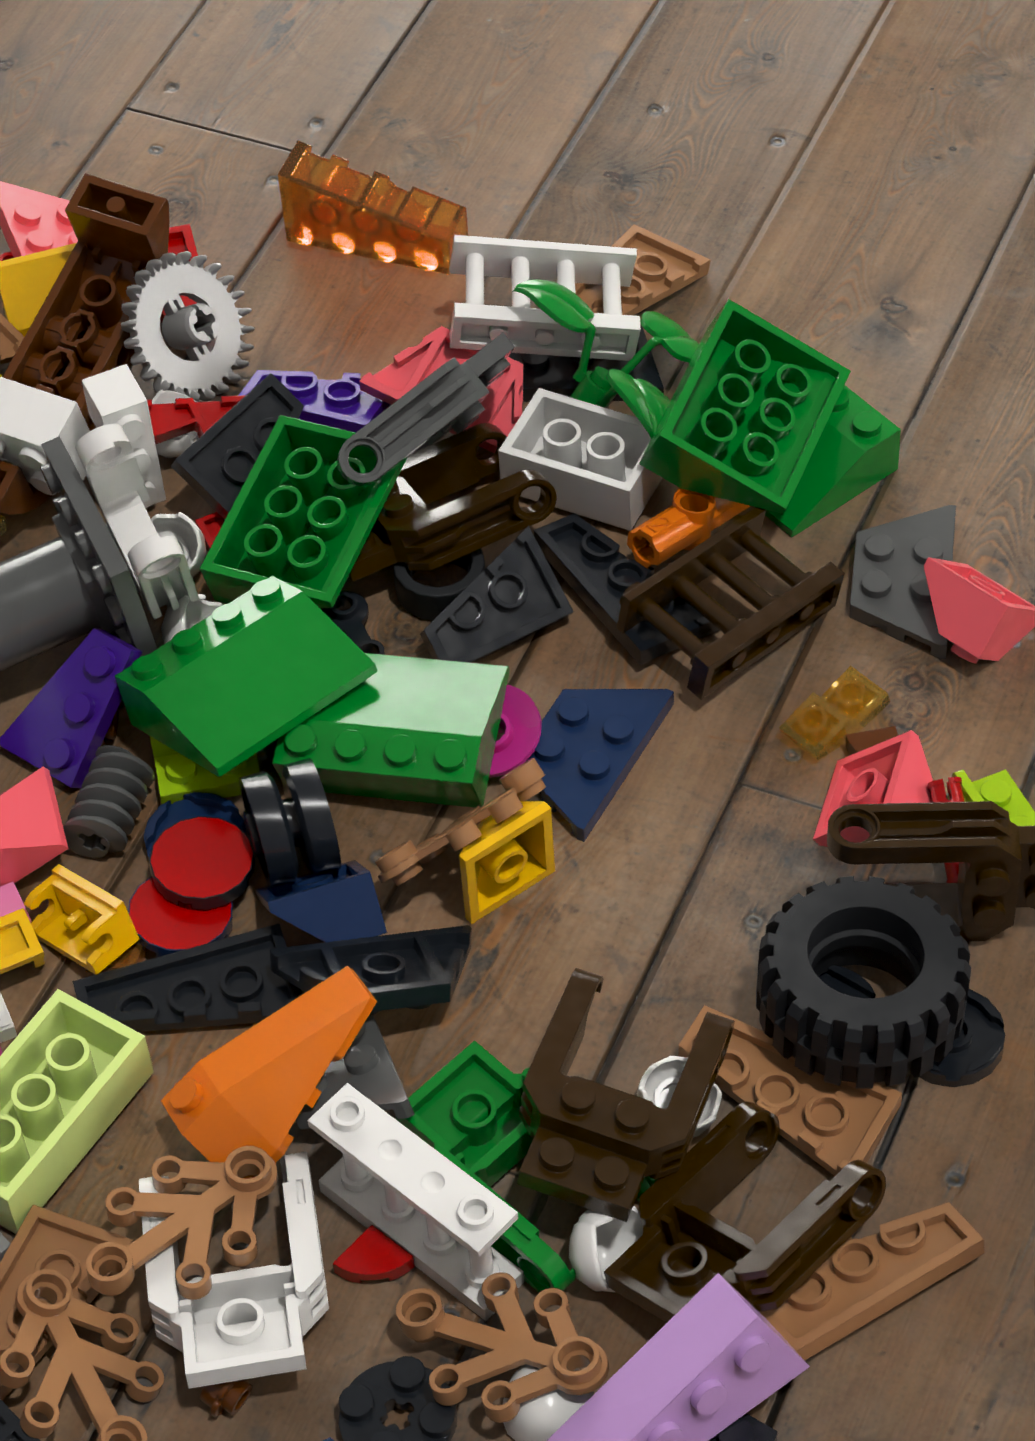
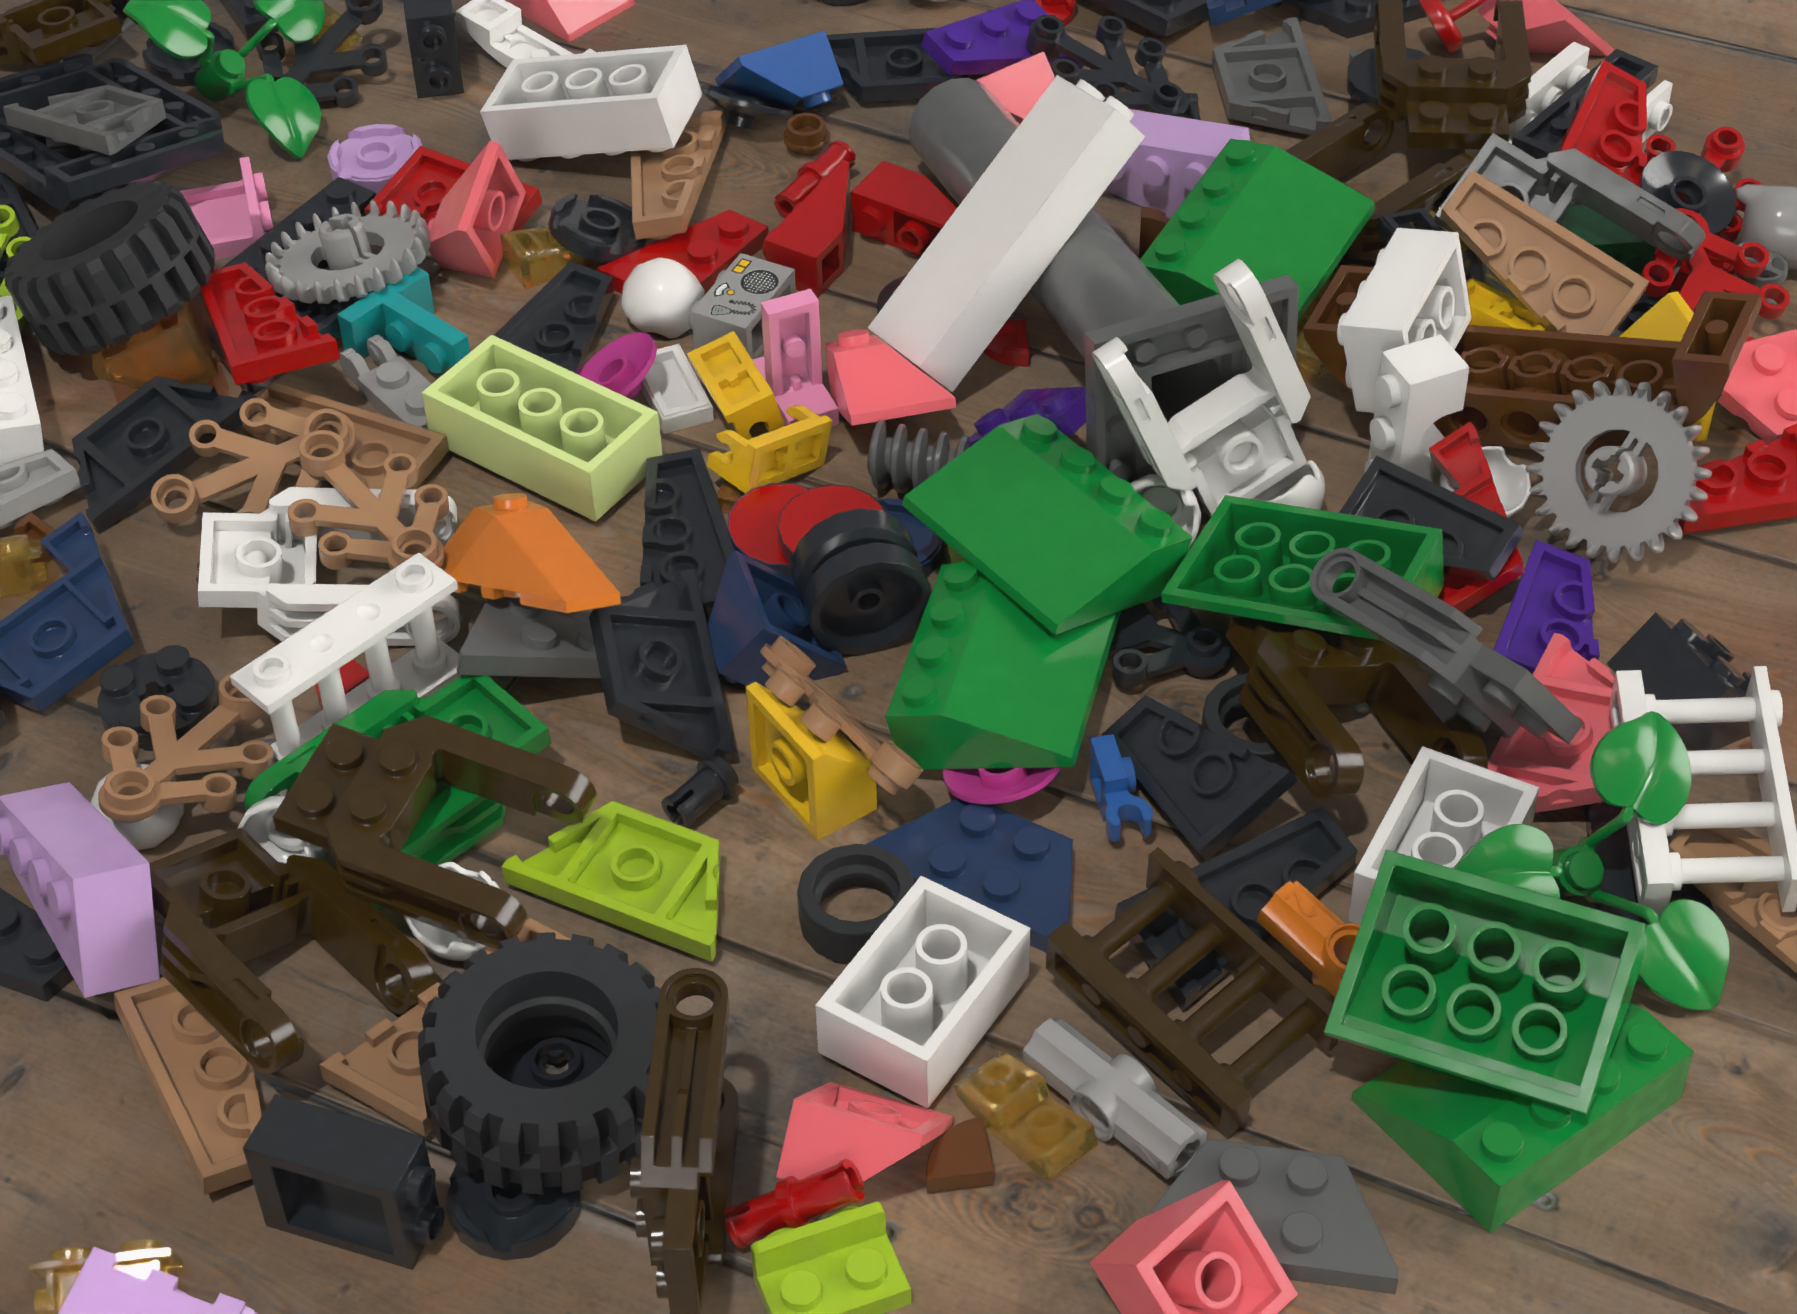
camera: 90 degrees right, 5 degrees down
(386, 327) = (1686, 665): none -> black slope
(519, 657) = (1112, 782): none -> blue plate
(520, 947) = (711, 782): none -> black pin
(637, 972) = (631, 874): none -> lime wing
(639, 855) = (841, 869): none -> black tyre
(742, 762) = (923, 991): none -> white brick
(820, 656) = (1114, 1097): none -> light grey piece
(985, 1121) = (344, 1181): none -> black window

